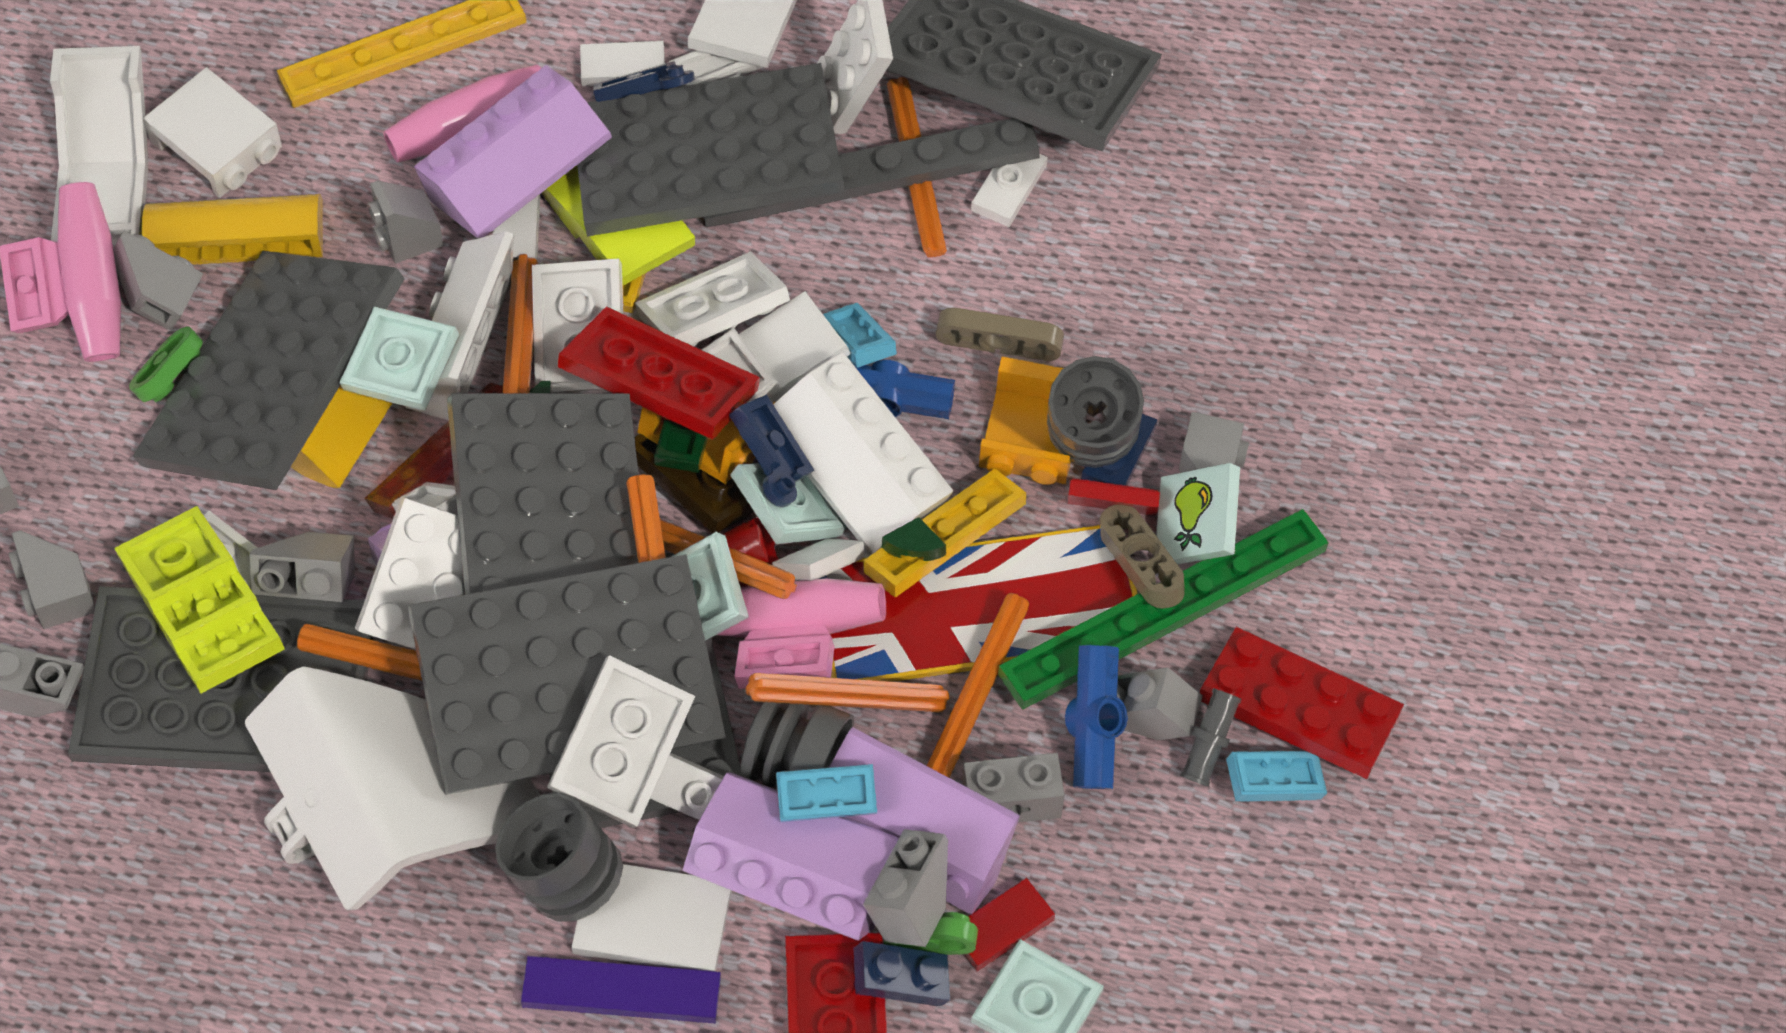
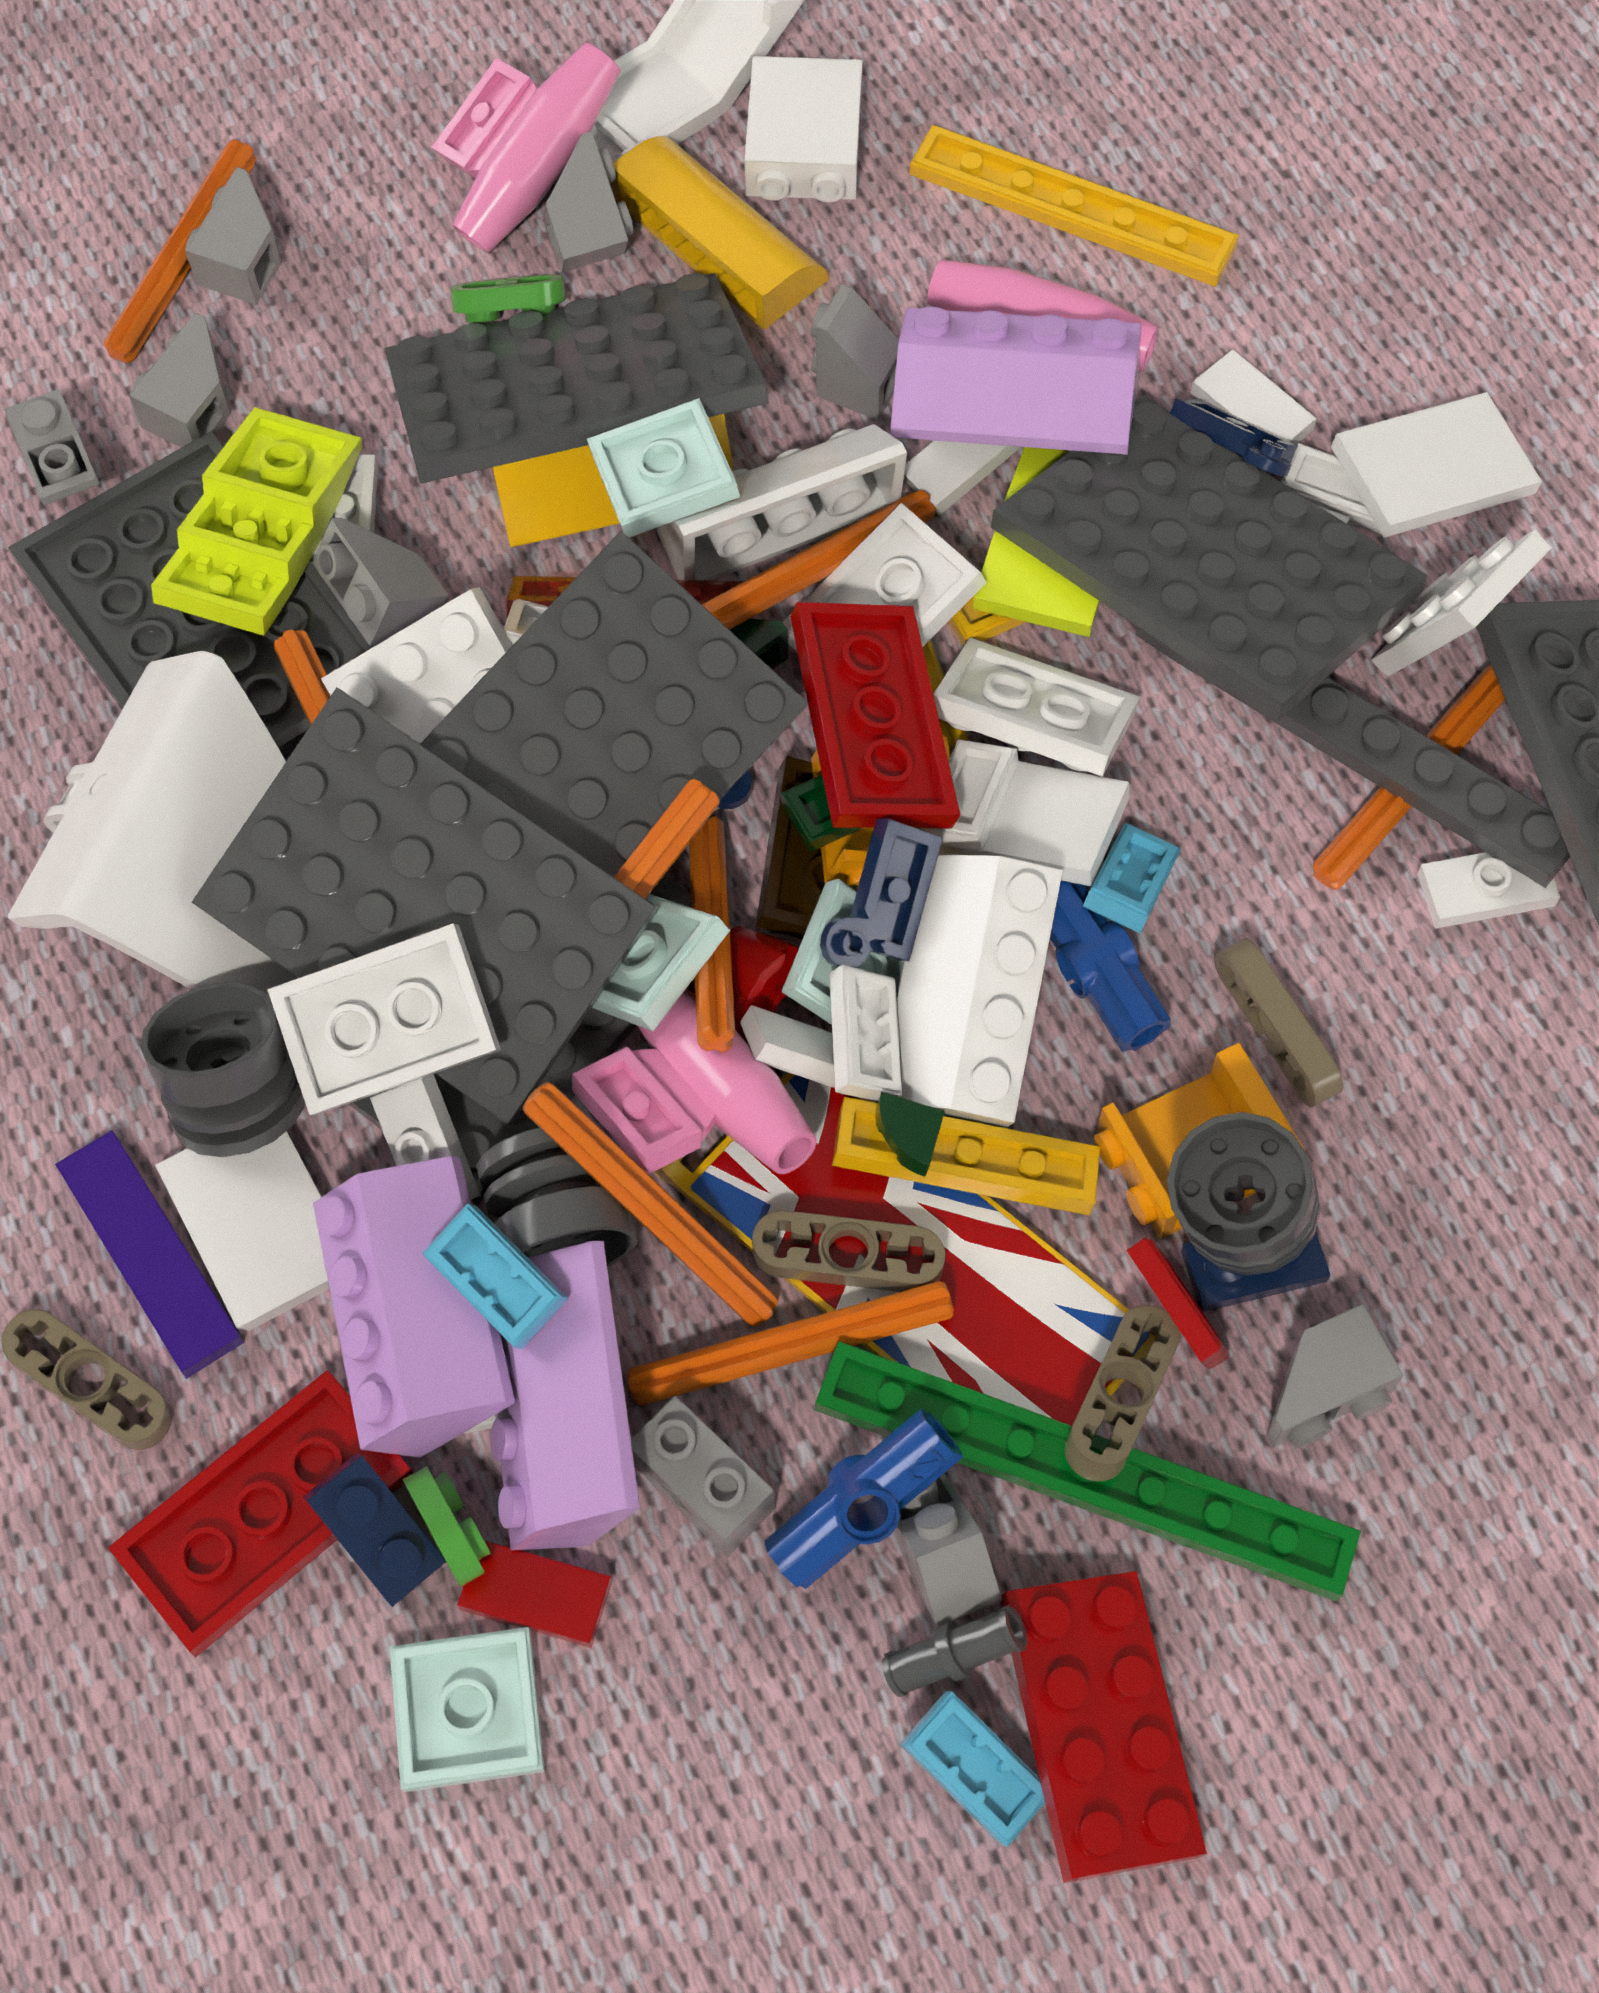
camera: 55 degrees right, 5 degrees up
(837, 522) = (865, 1033): none -> white plate
(911, 889) = (455, 1457): light grey slope -> none
(944, 648) = (831, 1228): none -> dark tan beam
(1199, 513) = (1230, 1414): light aqua tile -> none

